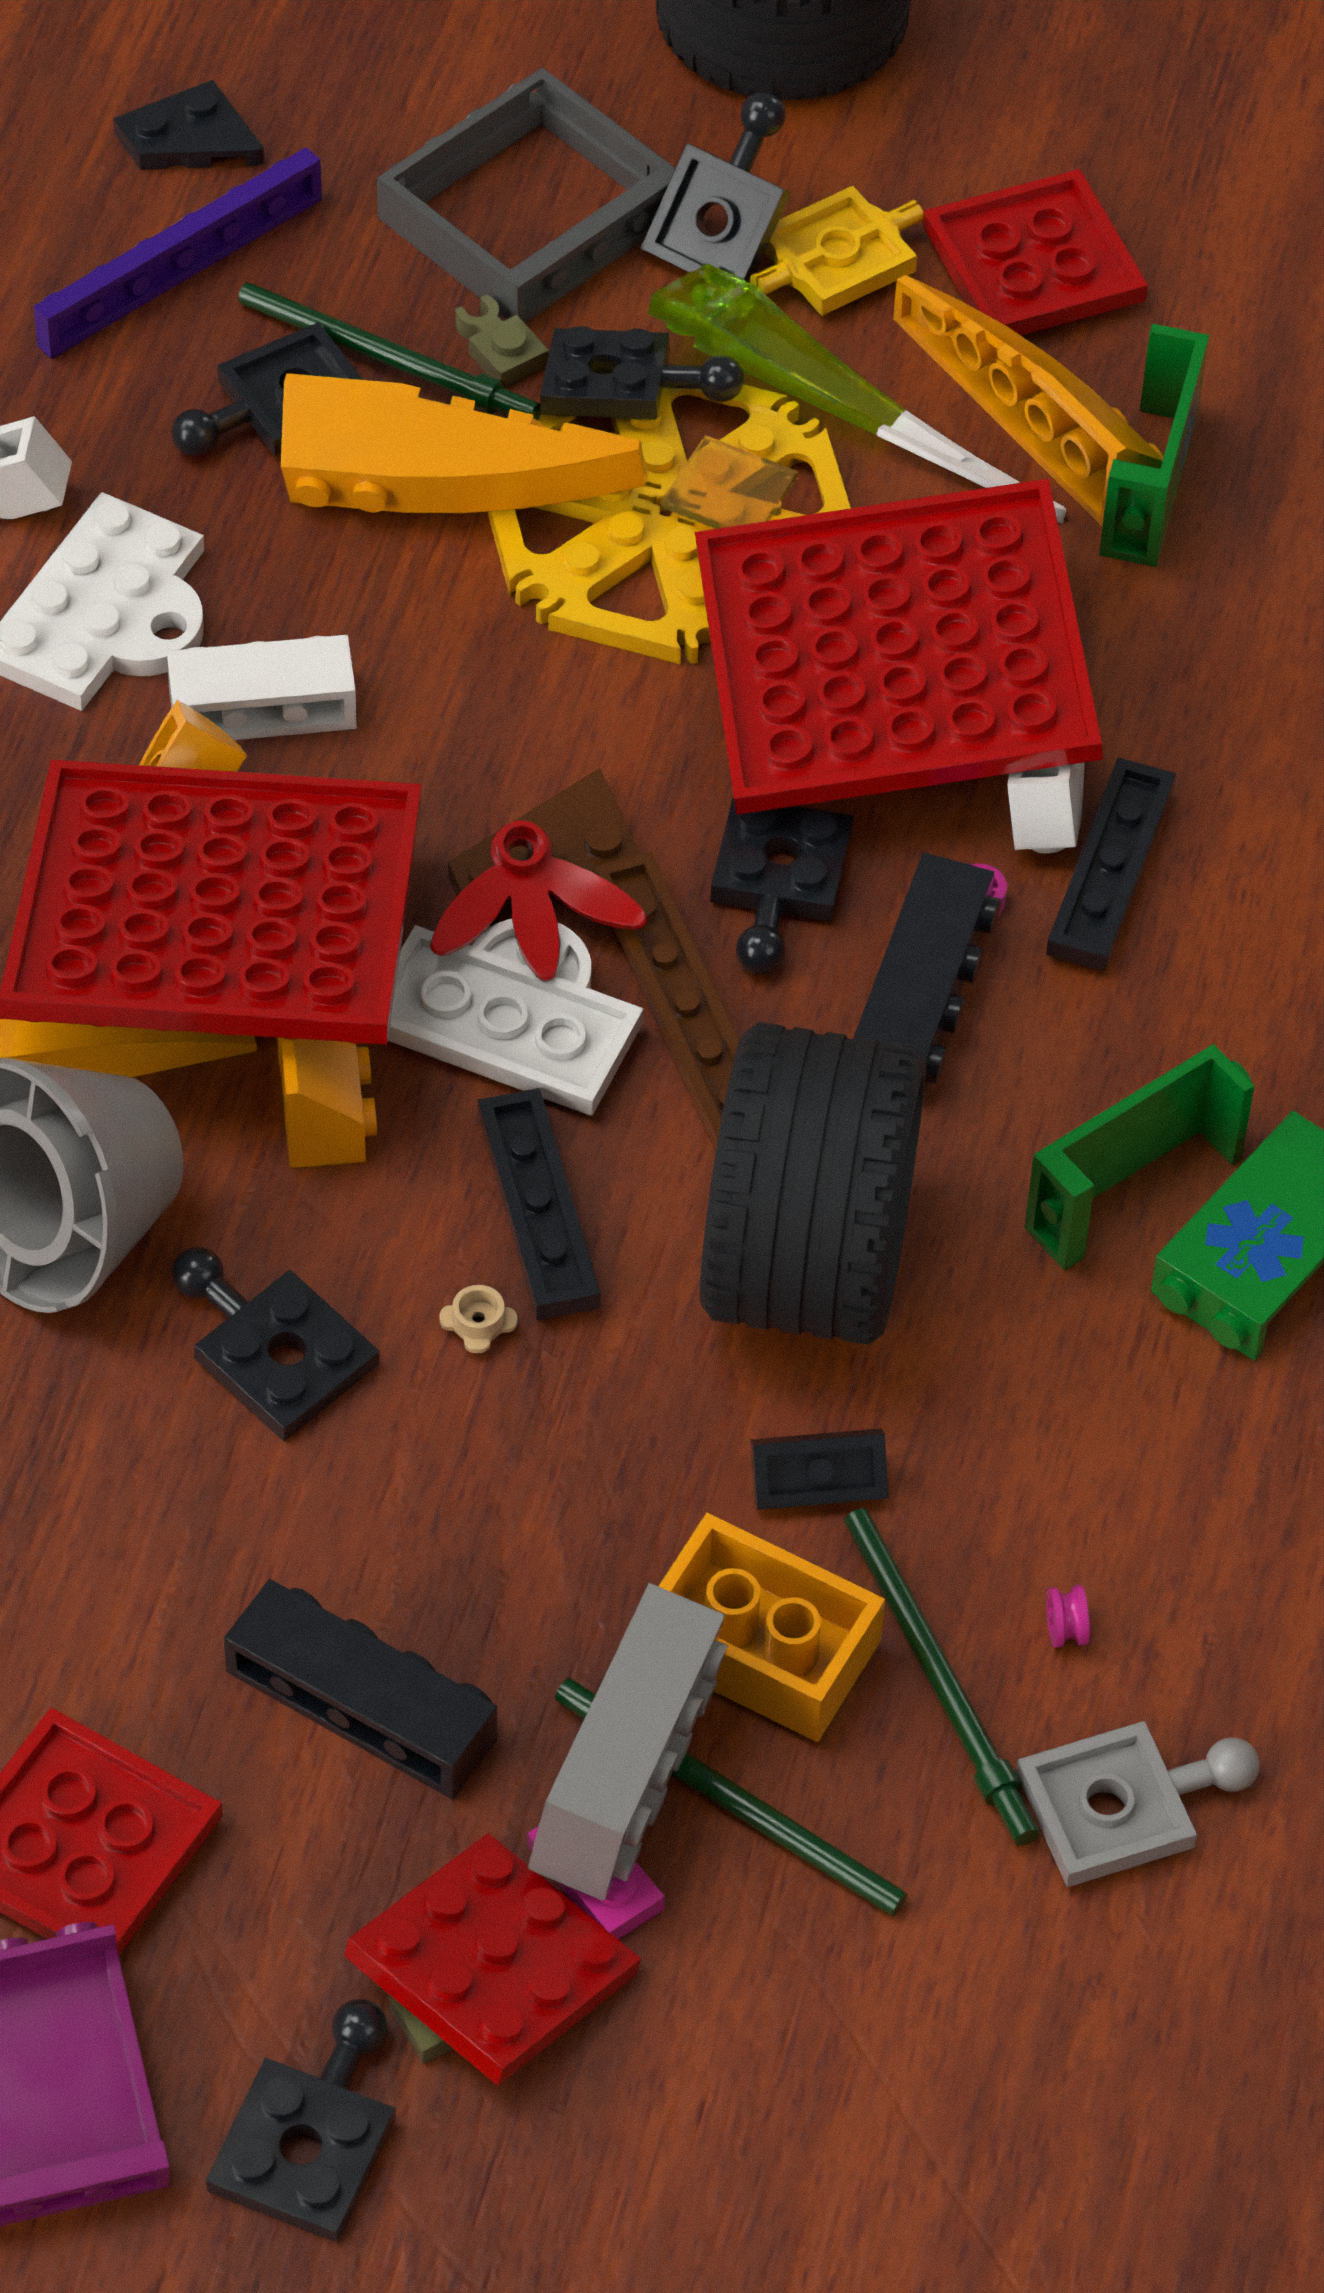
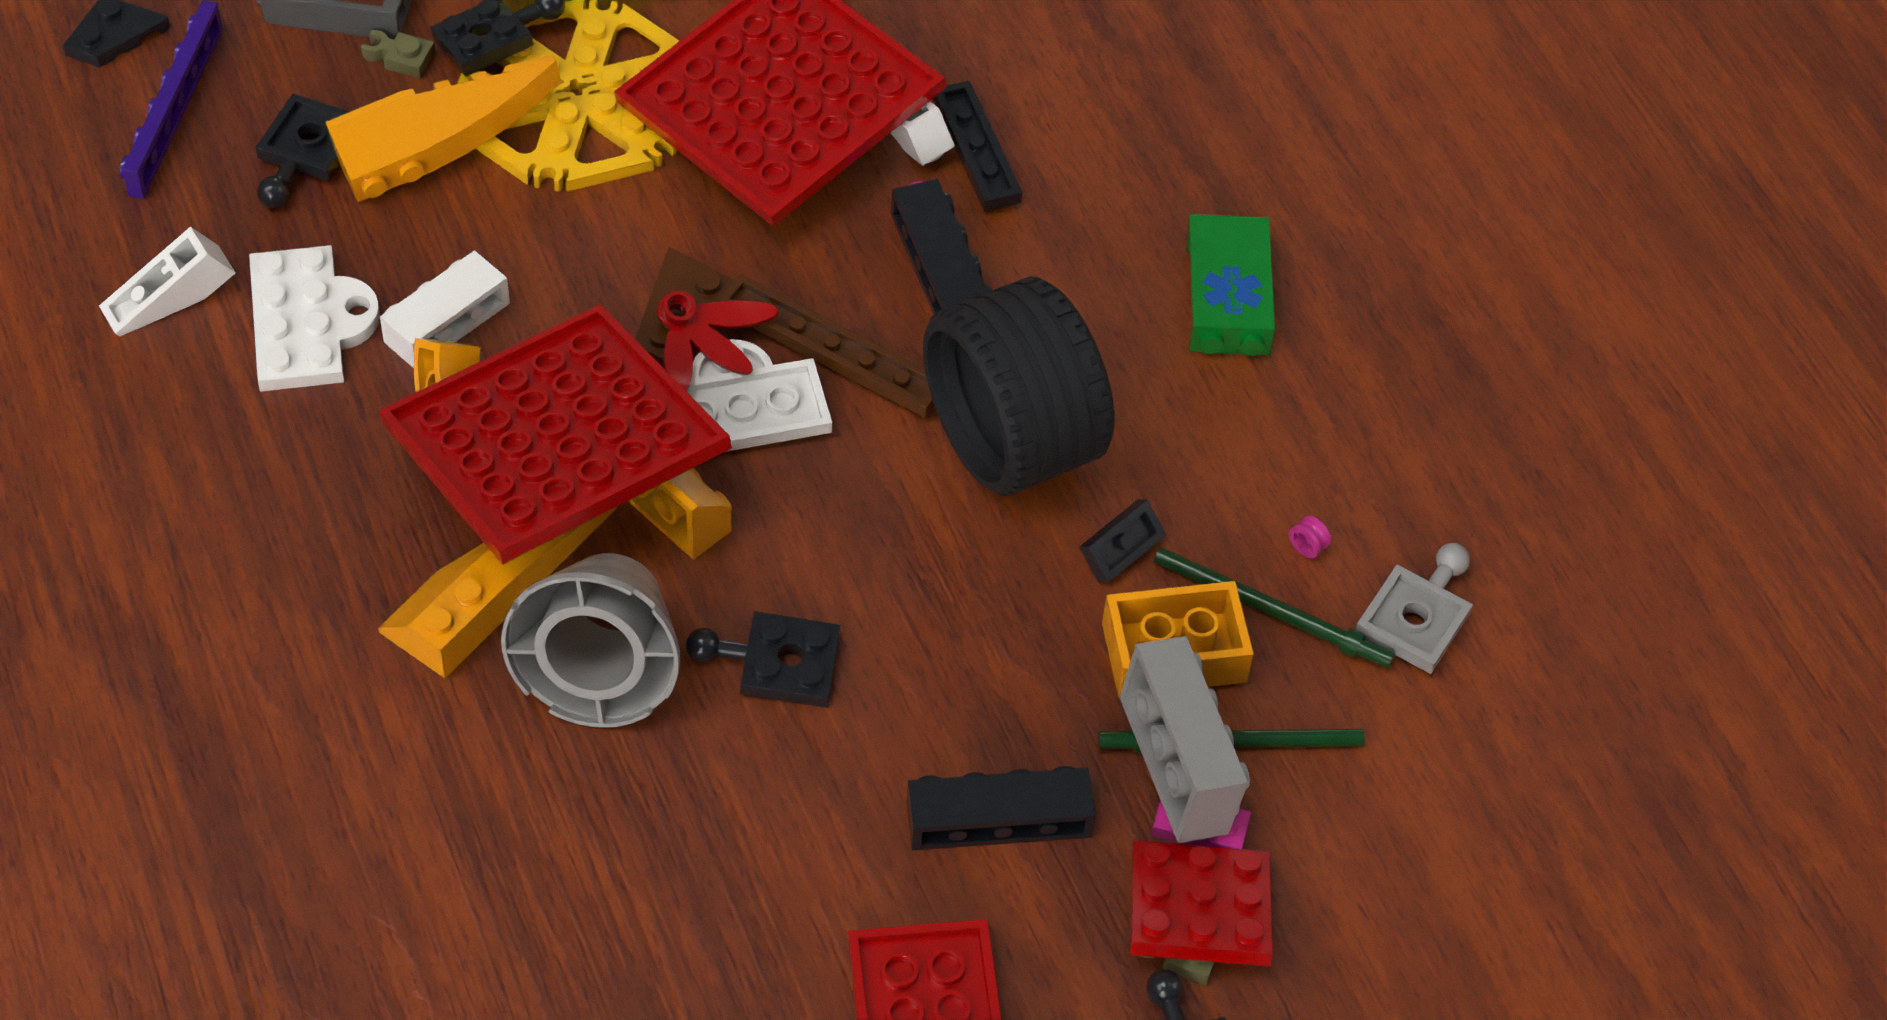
camera: 40 degrees left, 0 degrees up
(478, 1302) = (873, 564): tan plate -> none
(485, 390) = (420, 82): dark green bar -> none
(538, 1204) = (850, 494): black plate -> none
(728, 486) = (605, 60): clear yellow piece -> none
(799, 889) = (801, 260): black plate -> none
(1196, 1096) = (1126, 319): green panel -> none

